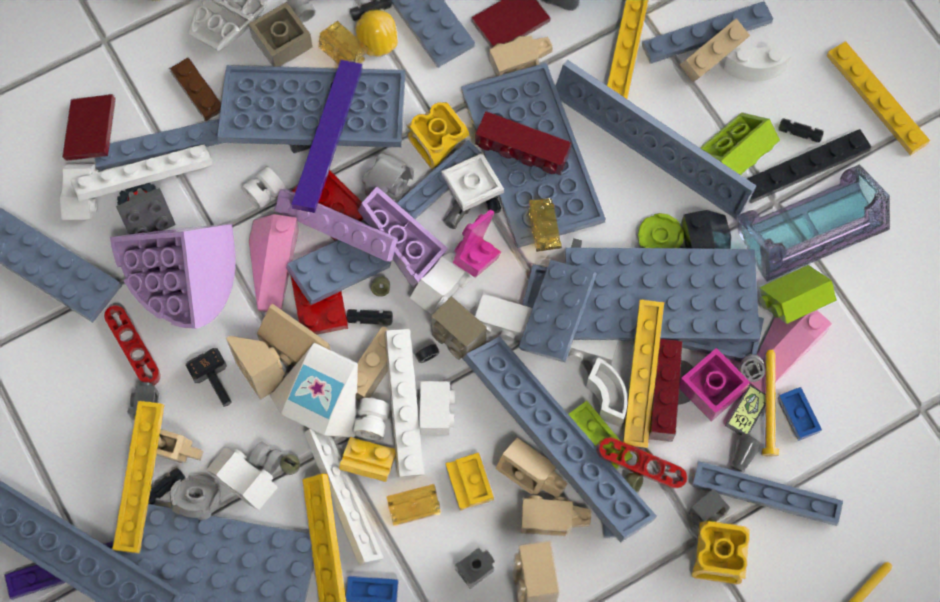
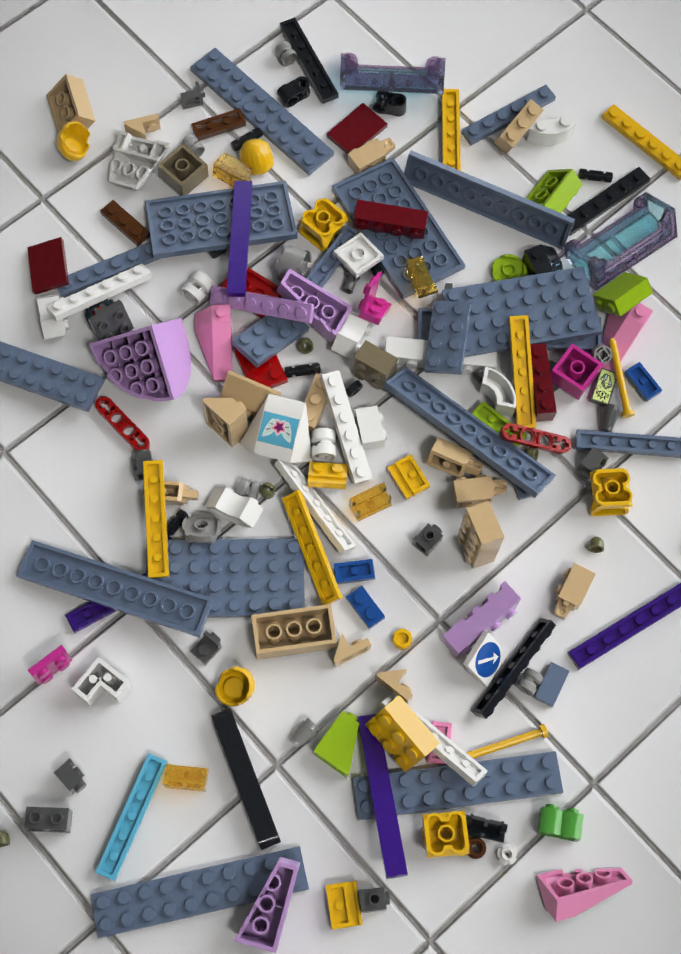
camera: 15 degrees left, 0 degrees up
(207, 367) = (185, 430): black piece -> none

